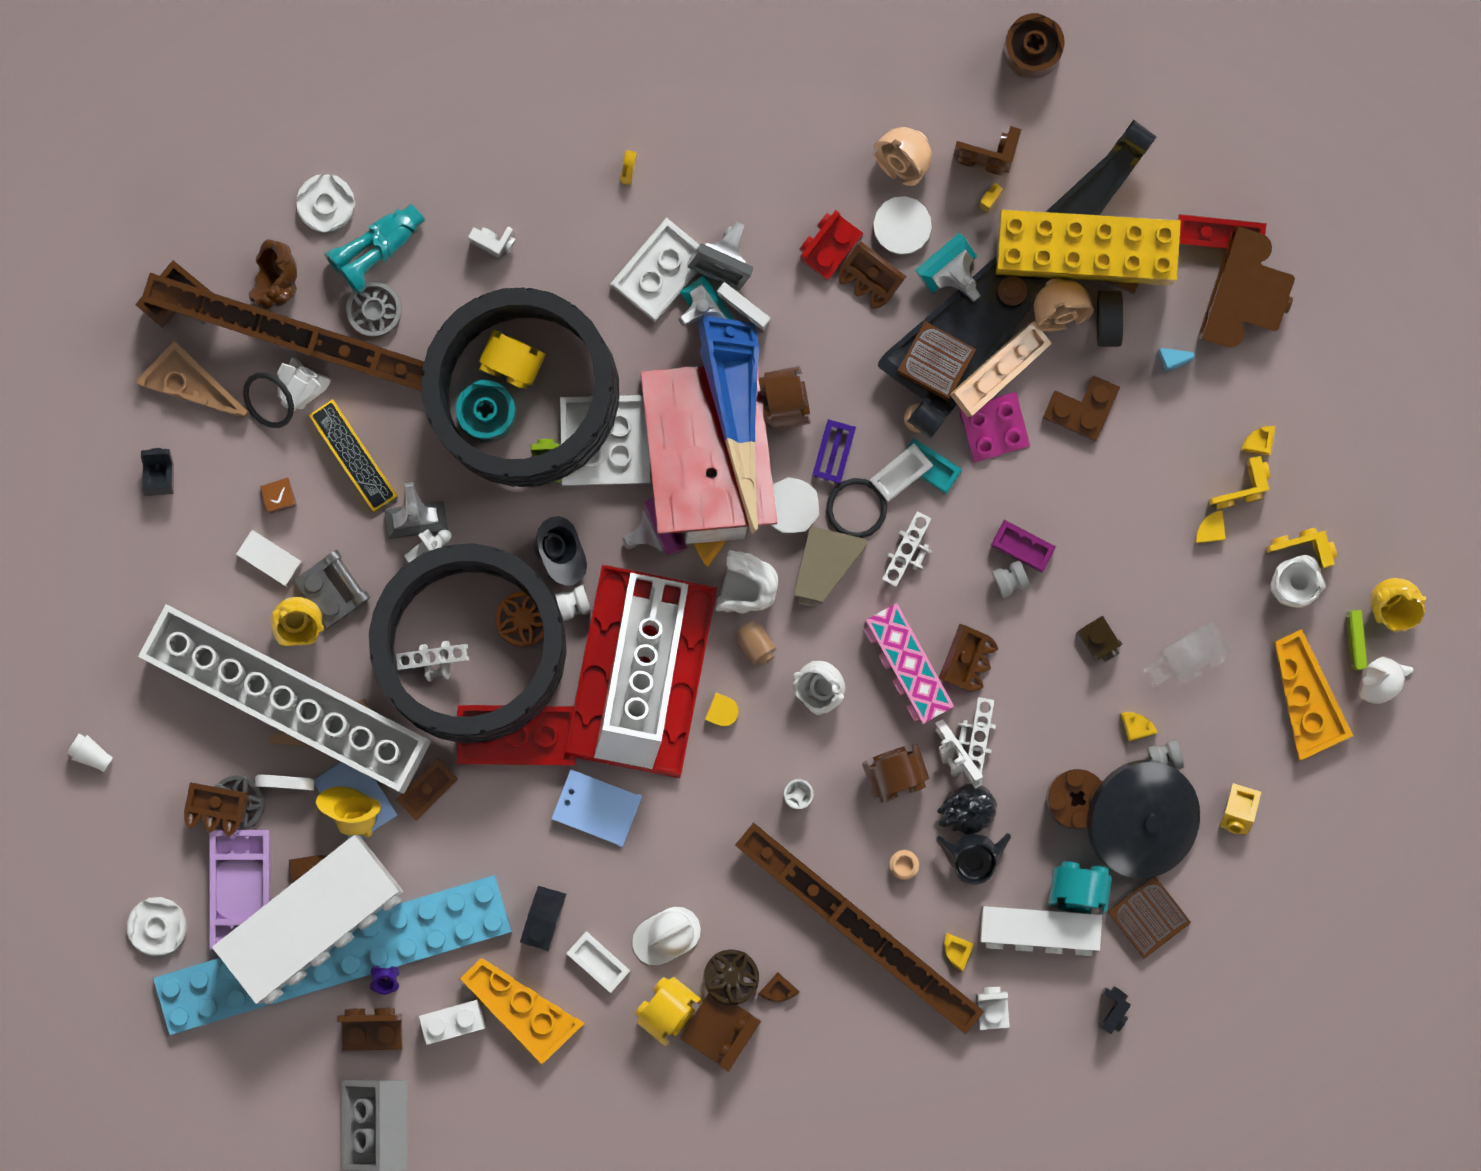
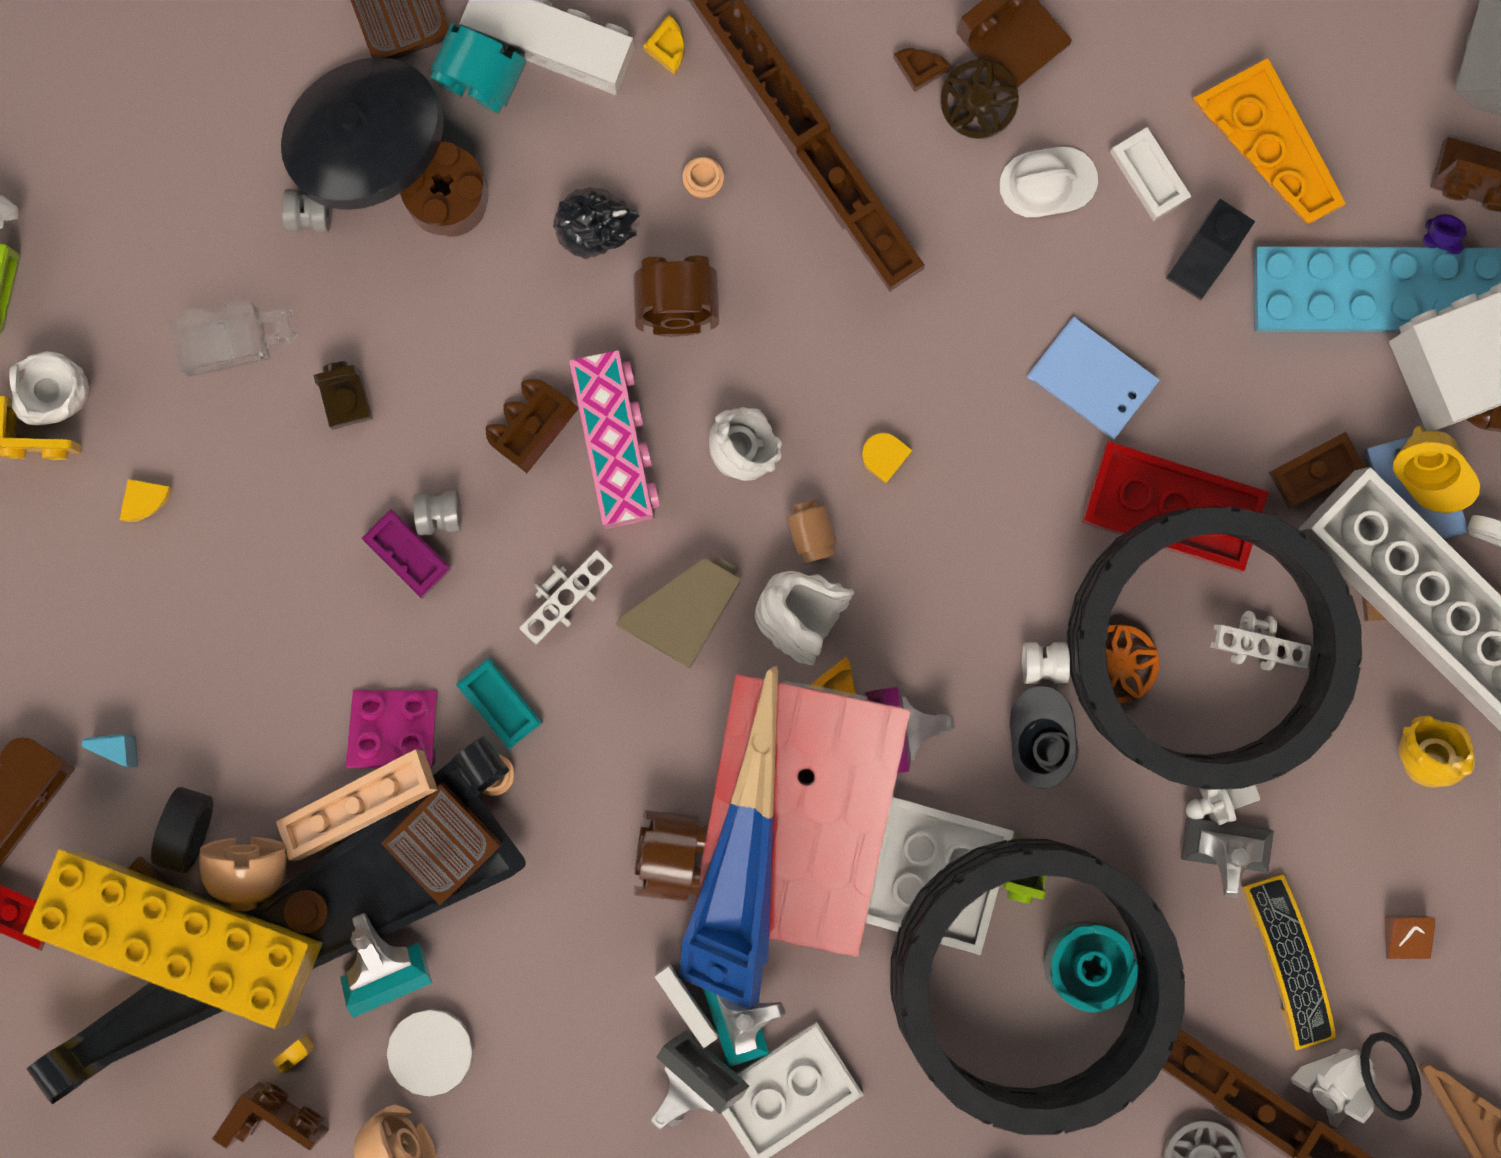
camera: 170 degrees left, 0 degrees up
(269, 558) = (1445, 854): white tile -> none
(321, 591) = (1382, 779): flat silver plate -> none
(452, 1022) = (1372, 149): white brick -> none
(511, 358) = (1034, 1029): yellow brick -> none
(640, 671) = (959, 572): piece -> none
(667, 1009) = (1079, 73): yellow brick -> none
(795, 505) = (700, 704): white hat -> none
(798, 790) = (816, 302): white wheel -> none
(827, 475) = (604, 794): dark purple tile -> none
(830, 245) = (539, 1055): red bracket -> none
(839, 487) = (617, 715): black piece -> none
(871, 274) = (493, 995): reddish brown plate -> none
(901, 472) = (540, 704): white tile -> none
(947, 751) = (597, 307): white piece -> none
(974, 856) = (606, 155): black piece -> none
(977, 727) = (560, 306): white piece -> none
(1086, 416) = (259, 707): reddish brown plate -> none
(1137, 726) = (332, 266): yellow tile -> none
(1240, 809) = (229, 112): yellow bracket -> none
(1259, 473) = (52, 552): yellow bracket -> none
(1260, 441) = (37, 600): yellow tile -> none
(1309, 699) = (88, 226): light orange wing -> none

